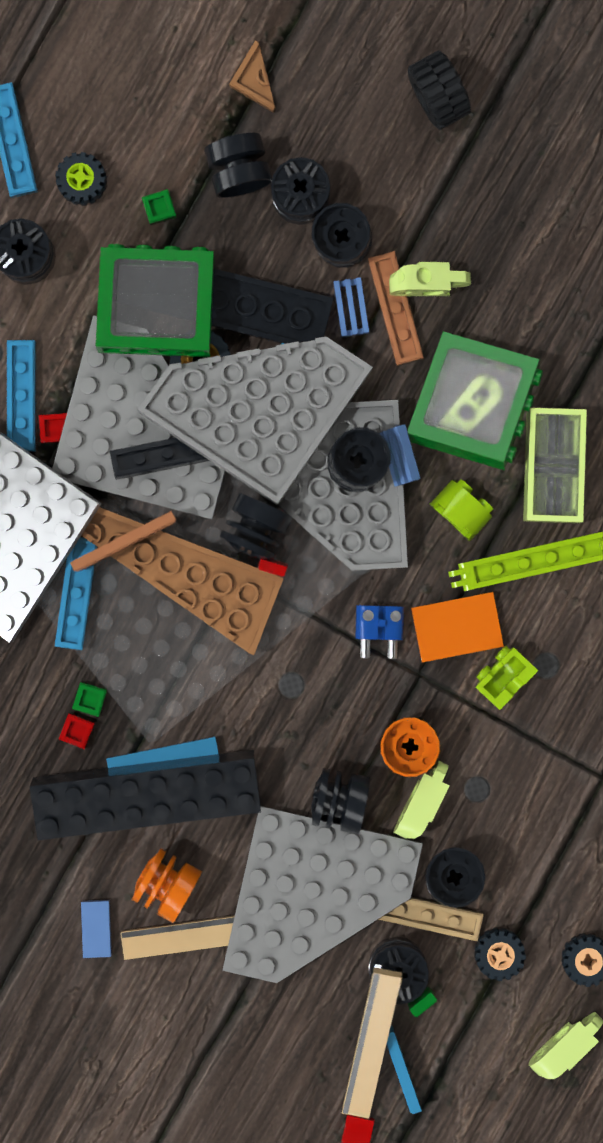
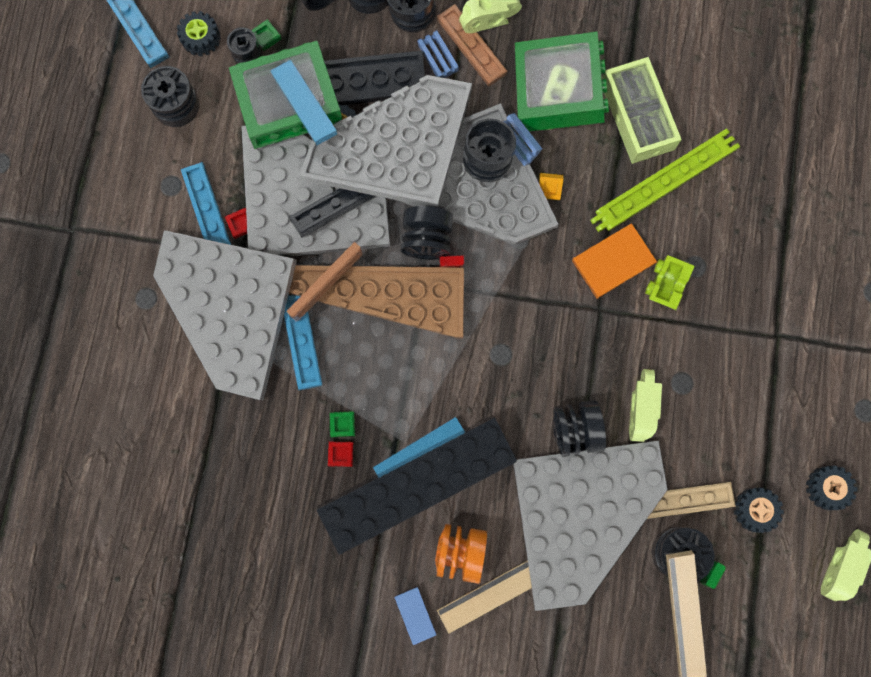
camera: 25 degrees left, 10 degrees down
(128, 220) = (243, 45): none -> black wheel
(170, 327) = (303, 102): none -> dark azure tile
(381, 624) = (551, 279): blue piece -> none
(402, 1072) = (724, 645): dark azure tile -> none
(419, 515) = (551, 185): none -> light orange plate
(420, 760) = (624, 352): orange wheel -> none
(462, 508) = (583, 169): lime cylinder -> none
(469, 885) = (703, 444): black wheel -> none

